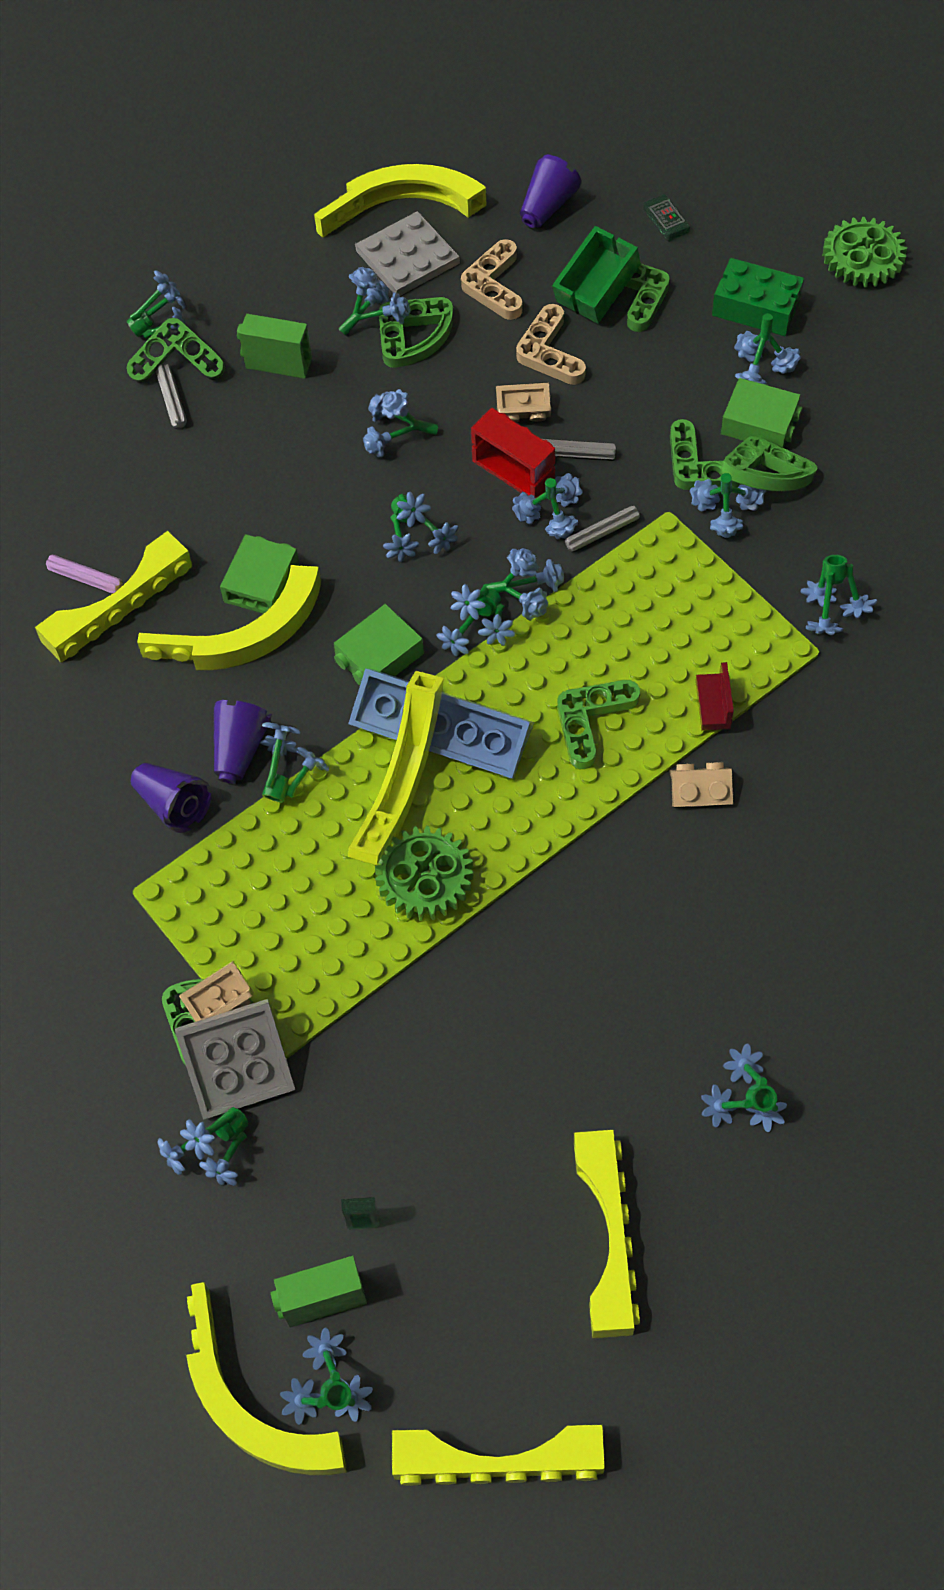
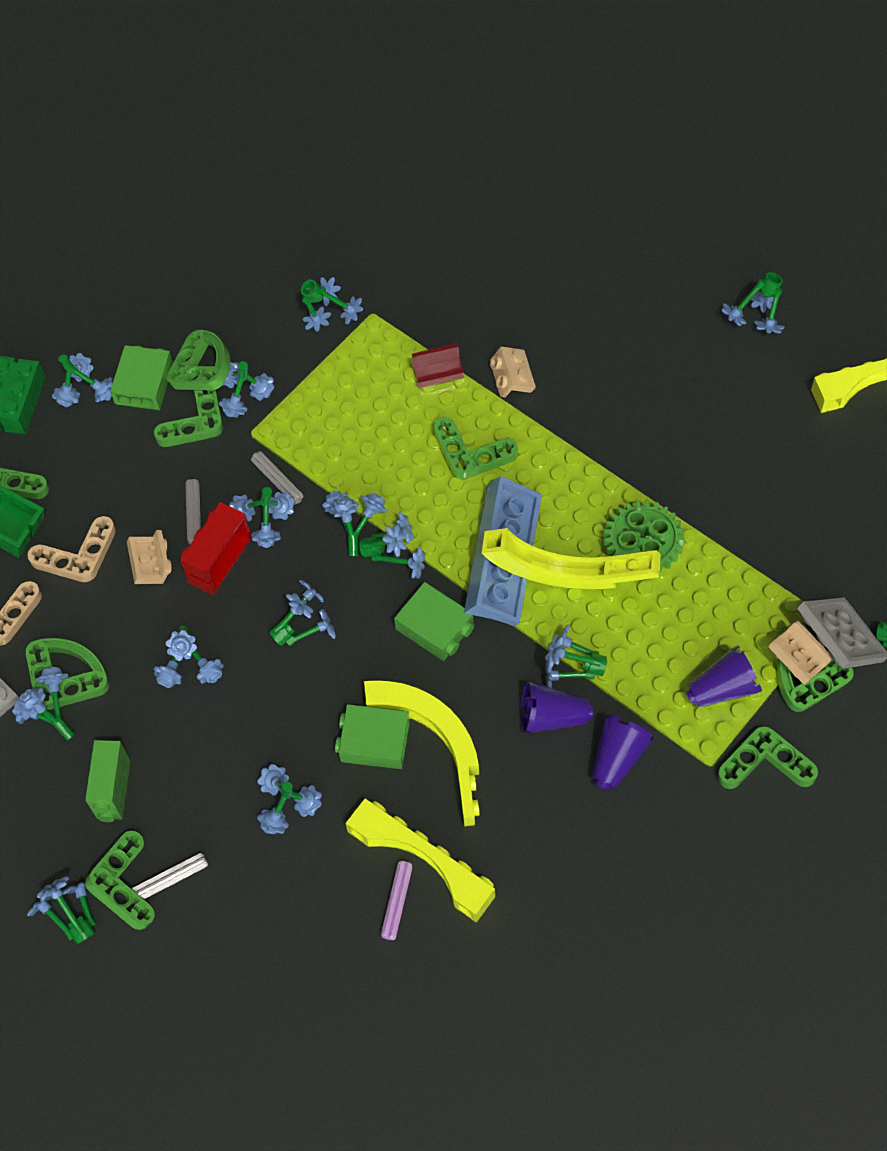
camera: 100 degrees left, 0 degrees up
(127, 954) = (767, 751): none -> bright green beam
(199, 481) = (275, 779): none -> medium blue plant
(212, 916) = (724, 680): none -> dark purple cone

